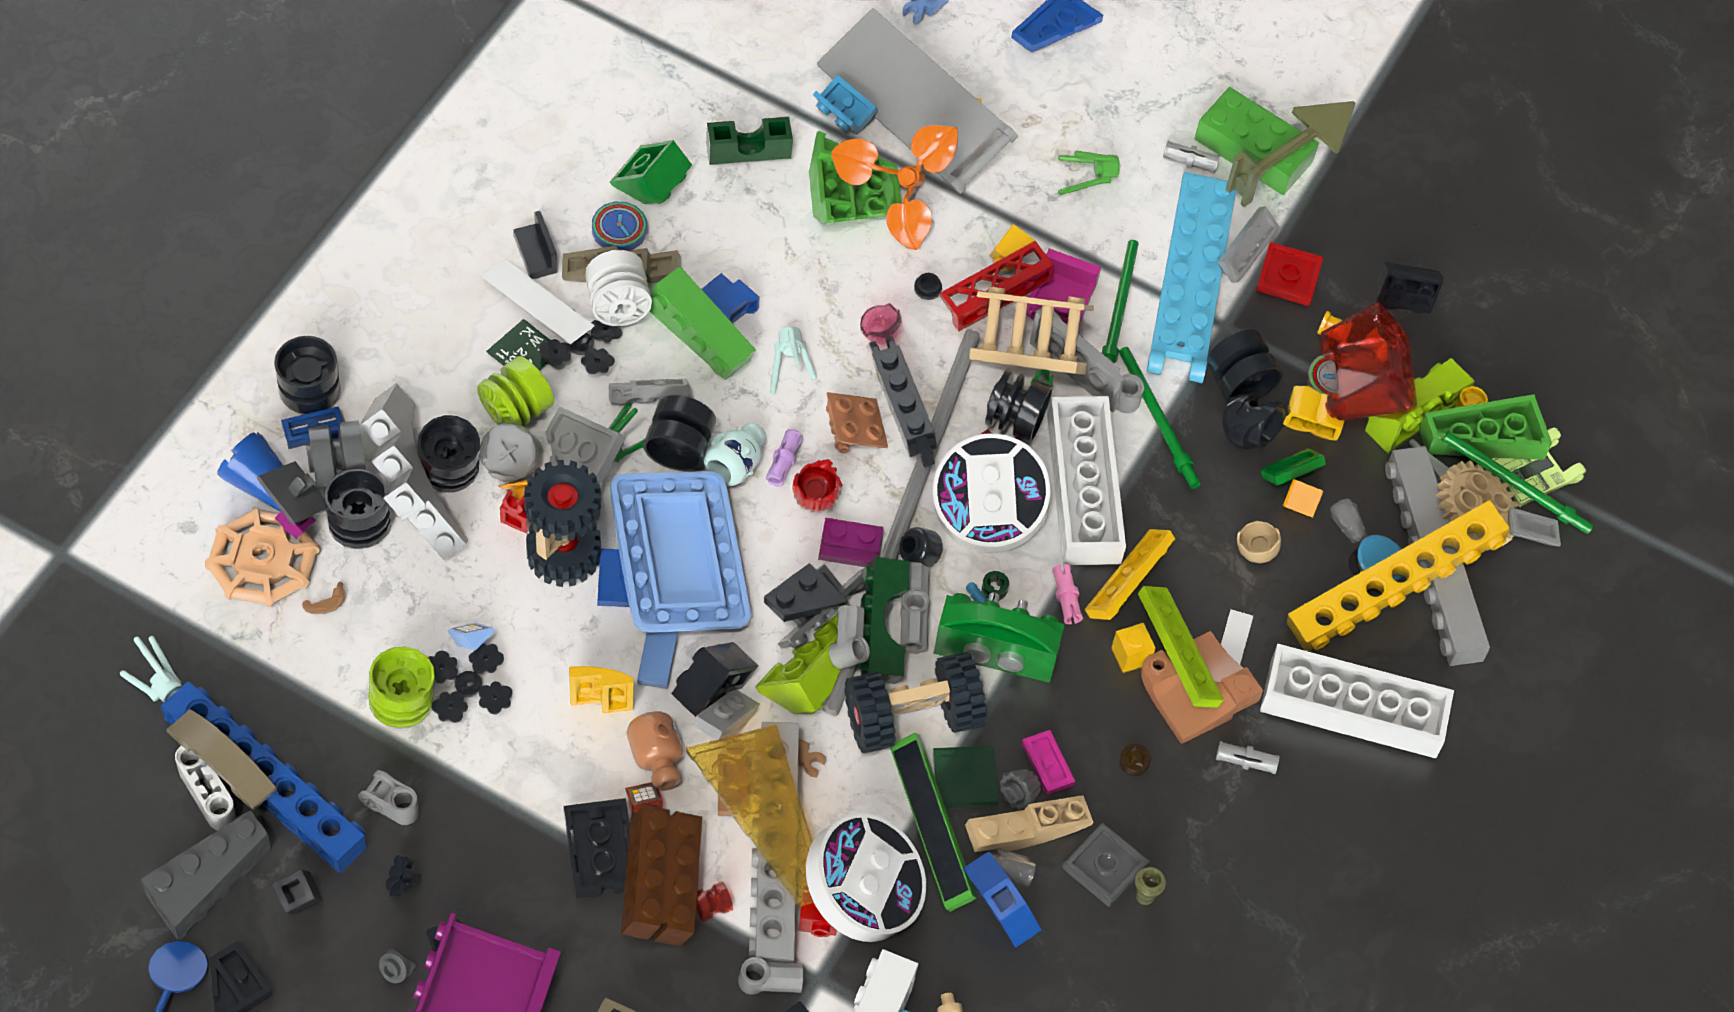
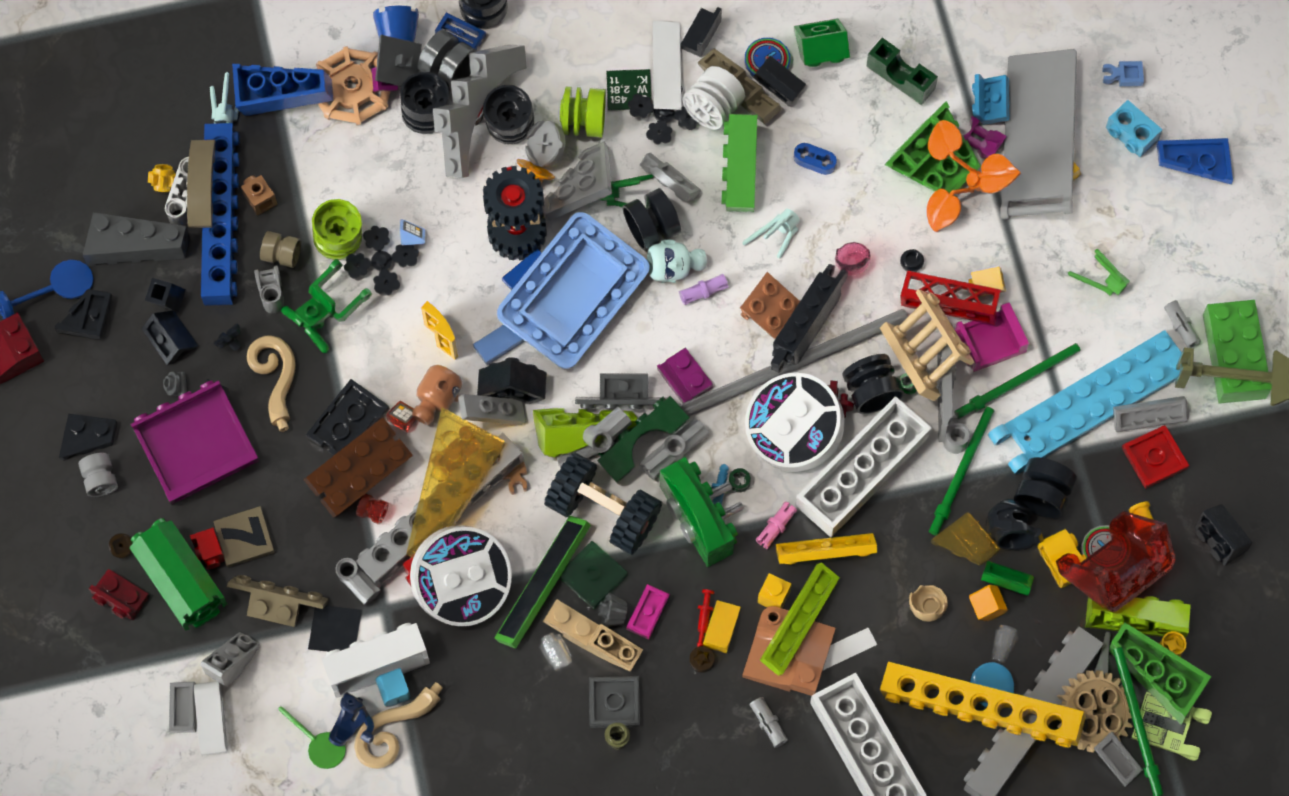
camera: 55 degrees right, 10 degrees up
(170, 792) = (161, 177): none -> yellow gear
(200, 611) = (278, 88): none -> blue wedge
(288, 732) = (260, 200): none -> medium nougat brick
(328, 604) = (359, 146): medium nougat piece -> none
(339, 930) = (168, 335): none -> black panel
(360, 755) = (280, 249): none -> dark tan wheel
(464, 769) = (322, 306): none -> green piece
(517, 895) = (277, 404): none -> tan plant
(653, 233) = (779, 80): none -> black panel
(732, 298) = (775, 162): blue piece -> none
(753, 271) = (815, 158): none -> blue beam
(803, 595) = (612, 380): black wing -> none
(817, 486) = (697, 323): red hair -> none
(881, 137) = (991, 142): none -> magenta piece
(921, 546) = (717, 416): black head -> none
(982, 37) = (1137, 125): none -> medium azure brick
(1002, 899) = (524, 662): blue slope -> none
(1095, 721) = (705, 611): none -> red piece
(1120, 718) = (721, 626): none -> yellow slope
(1226, 467) = (967, 540): none -> clear yellow wing

